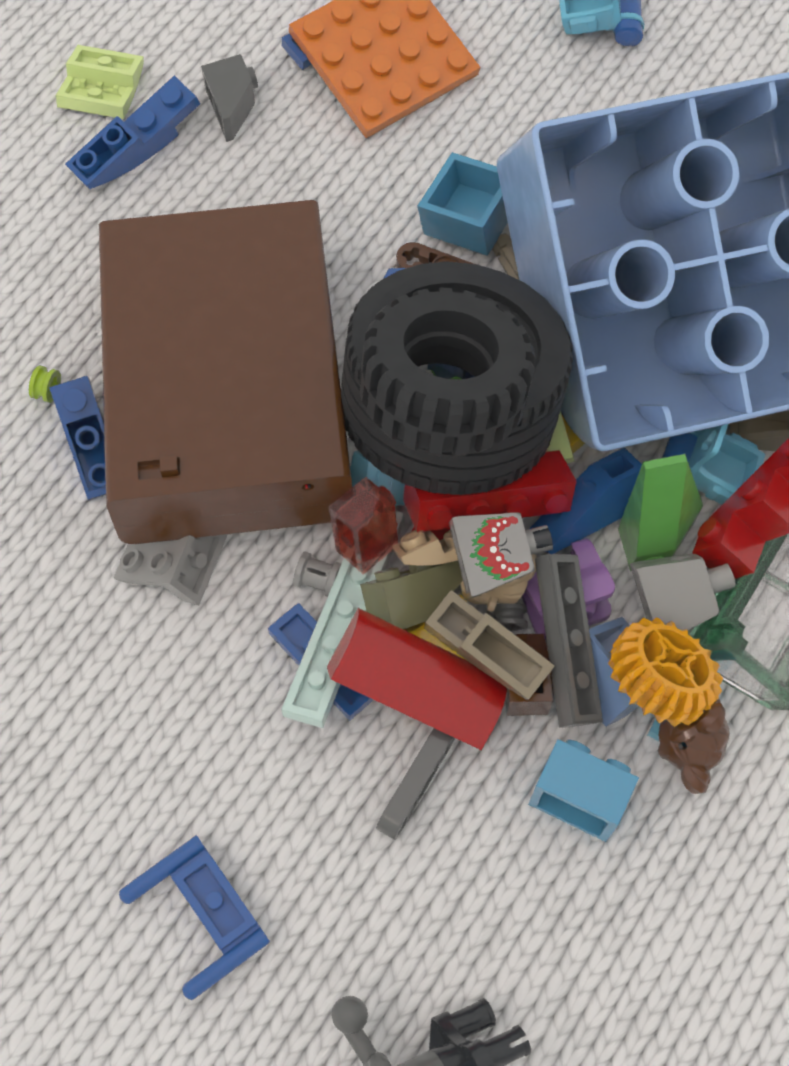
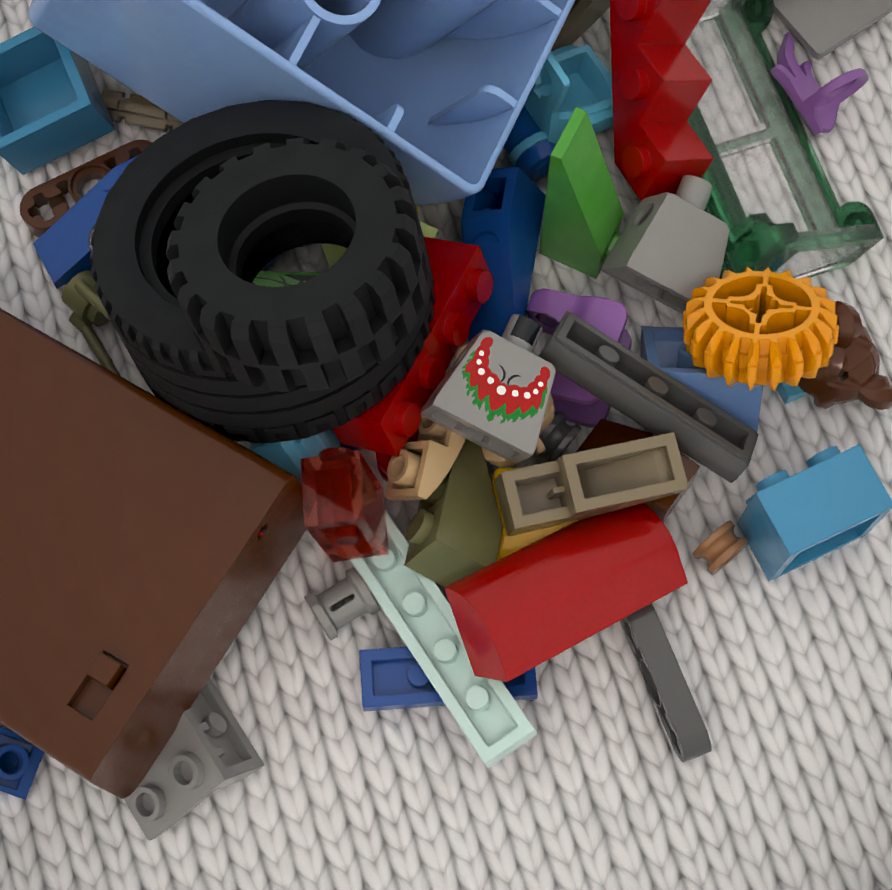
camera: 50 degrees left, 5 degrees up
(522, 757) = (720, 547): none -> medium nougat bush

